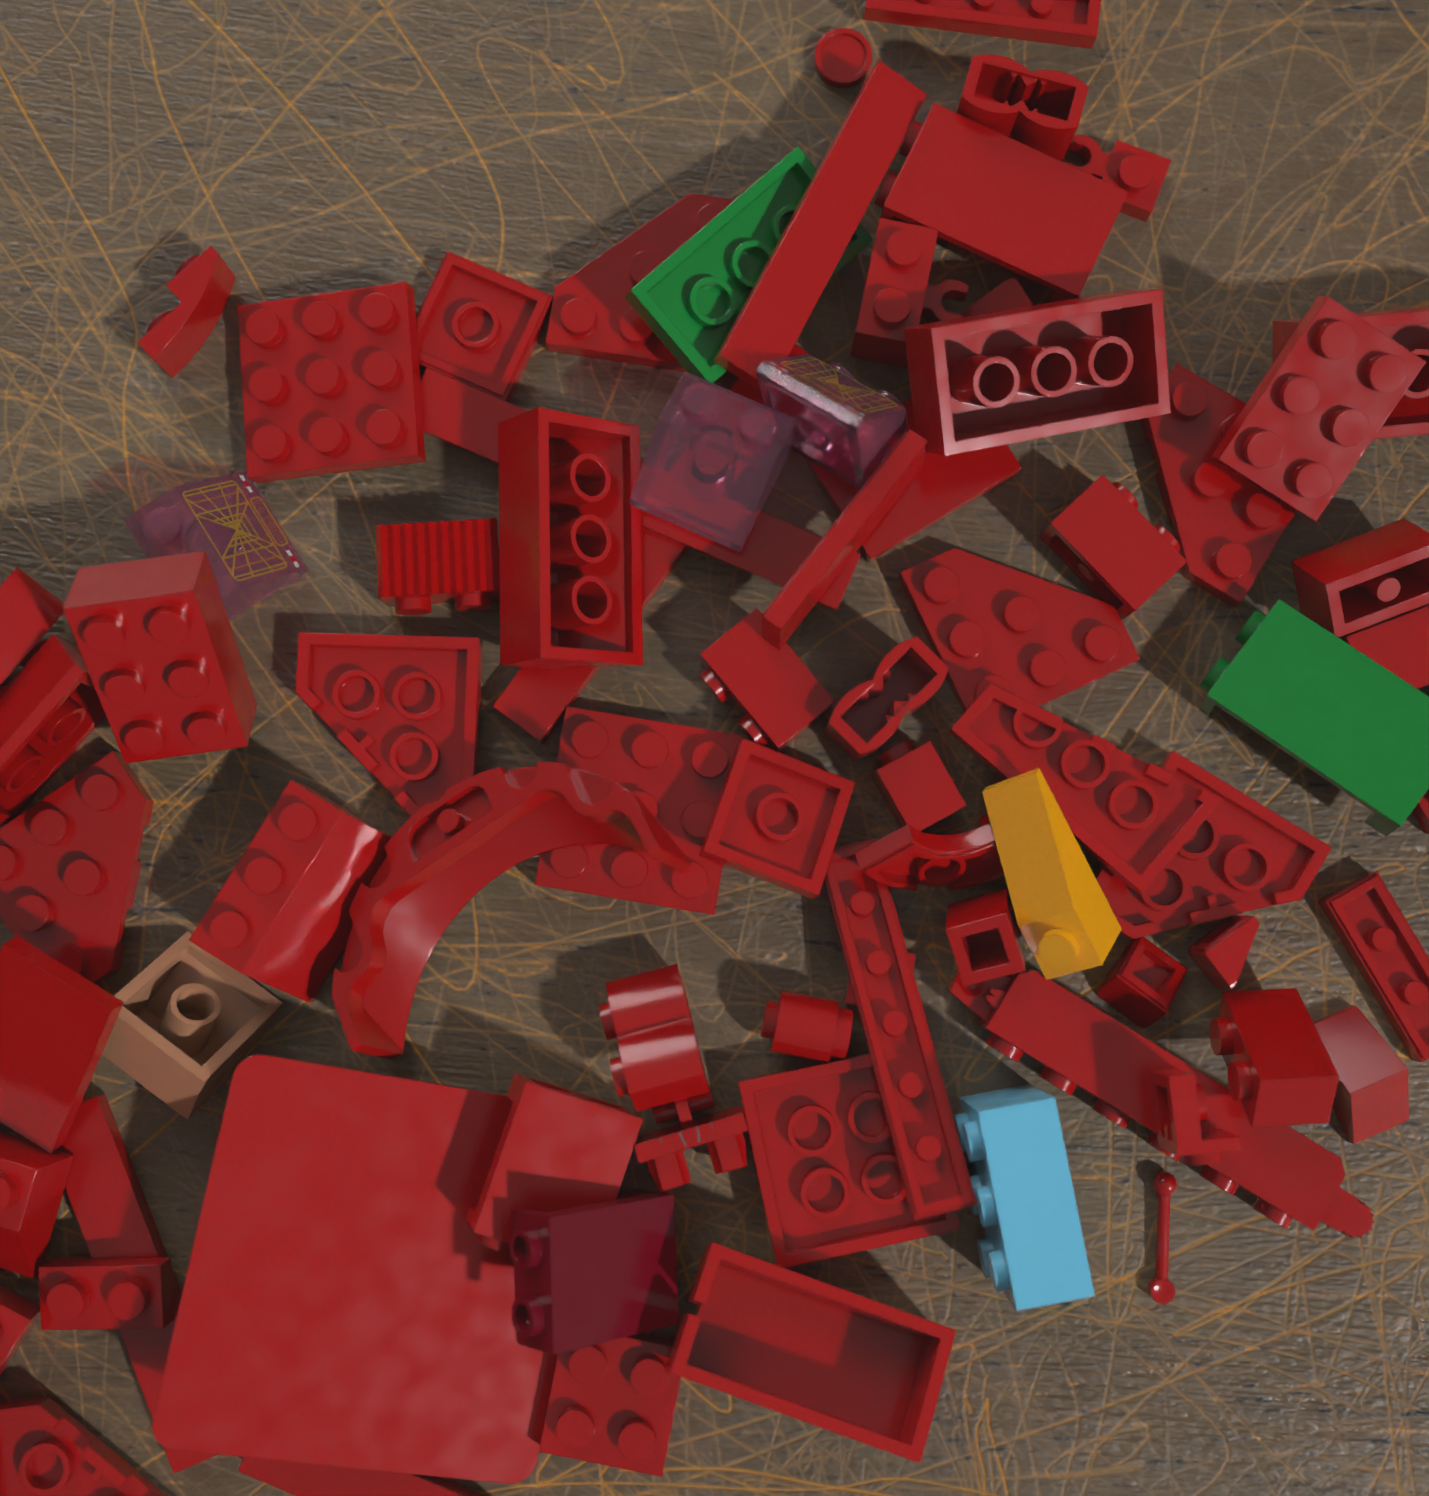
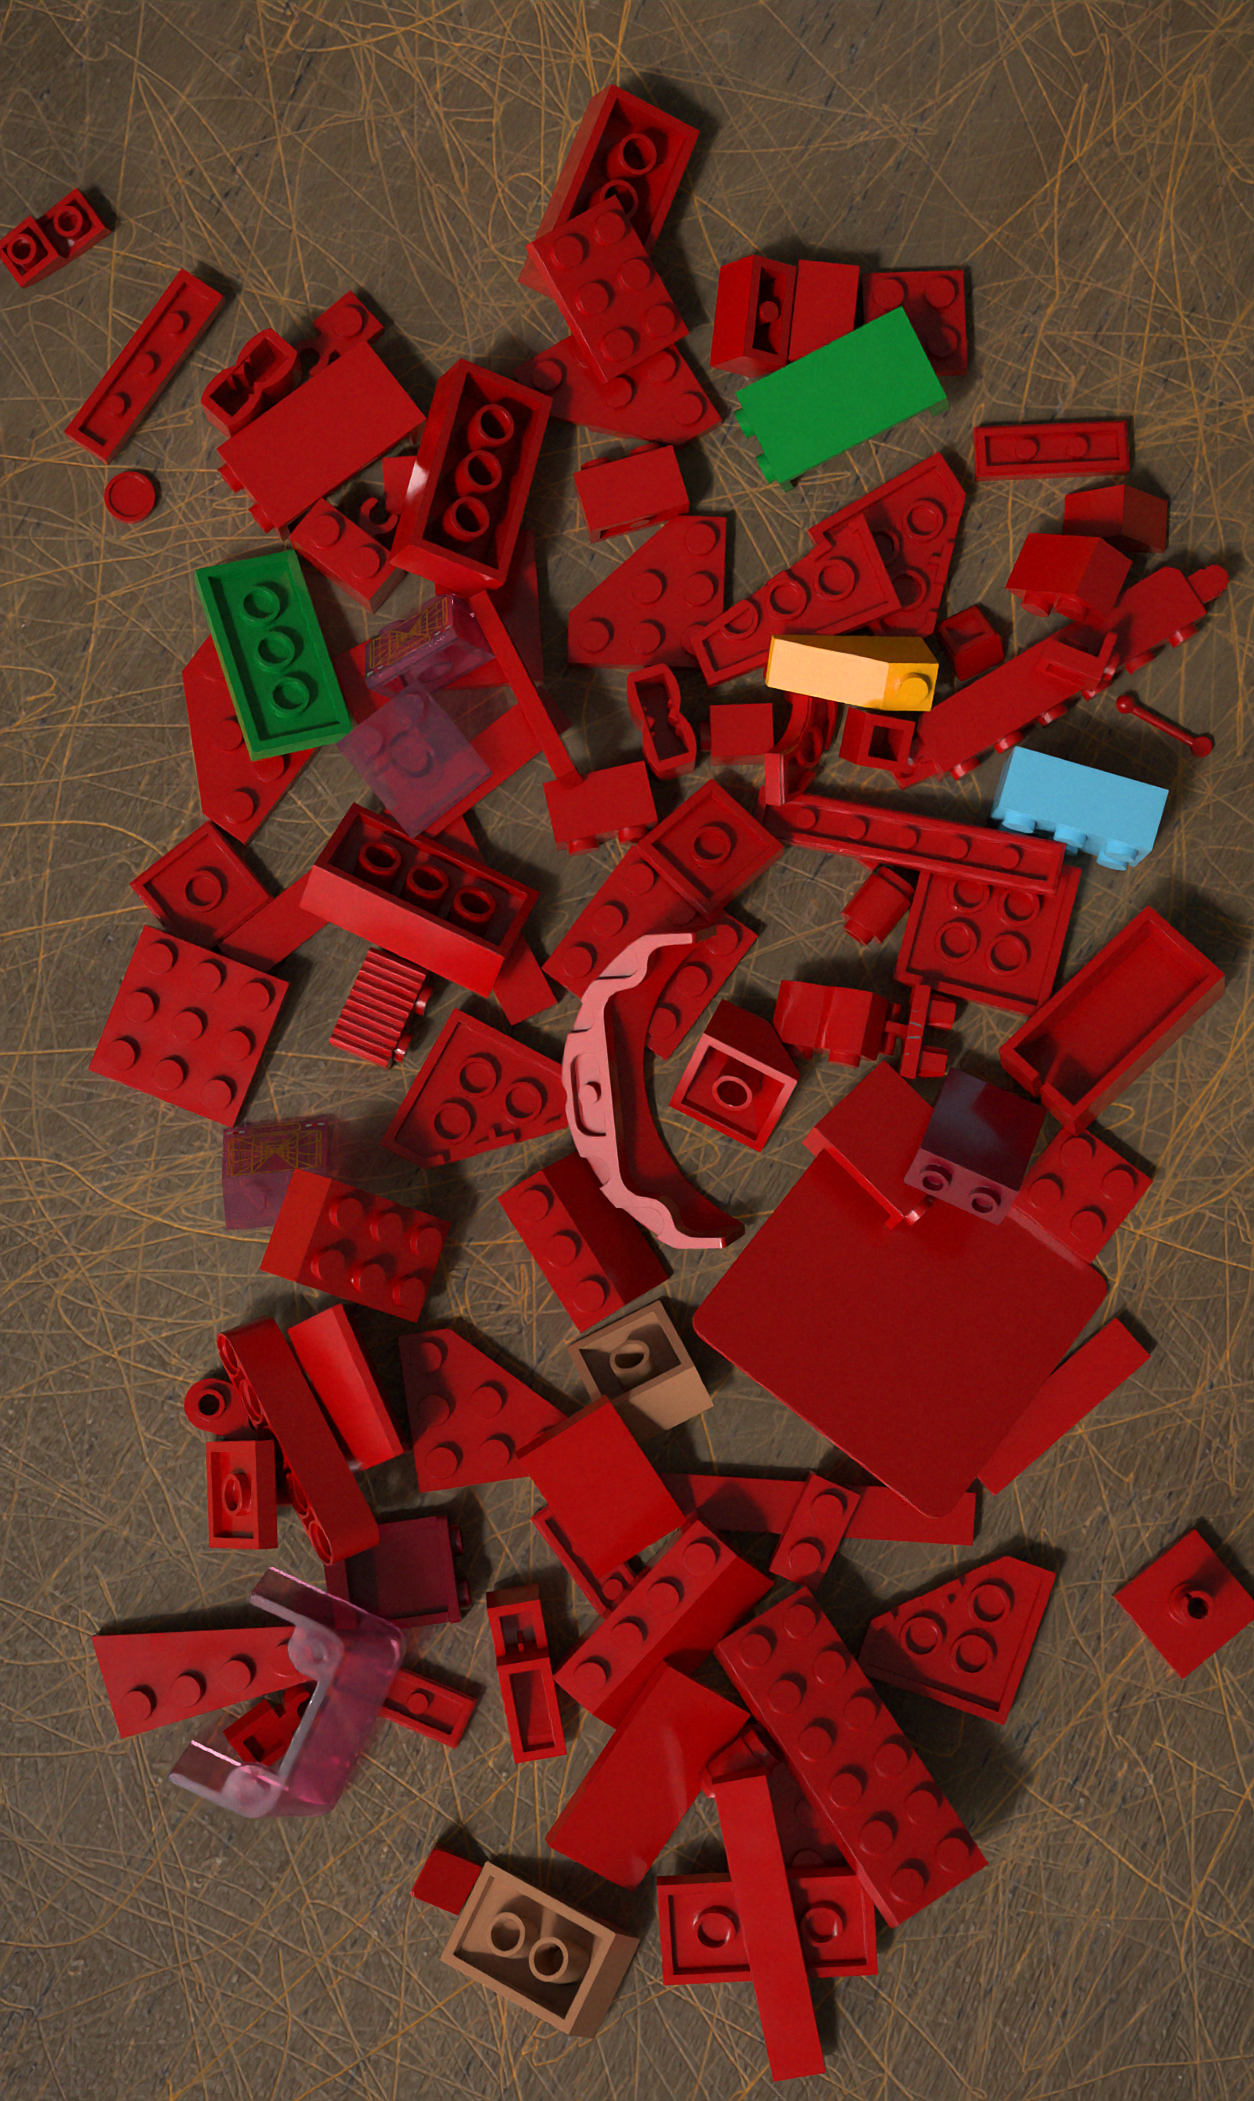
camera: 65 degrees left, 0 degrees up
(203, 288) = (65, 1096): red slope -> none
(552, 969) = (737, 1077): none -> red slope
(822, 224) = (268, 582): red tile -> none
(1225, 950) = (975, 570): red slope -> none

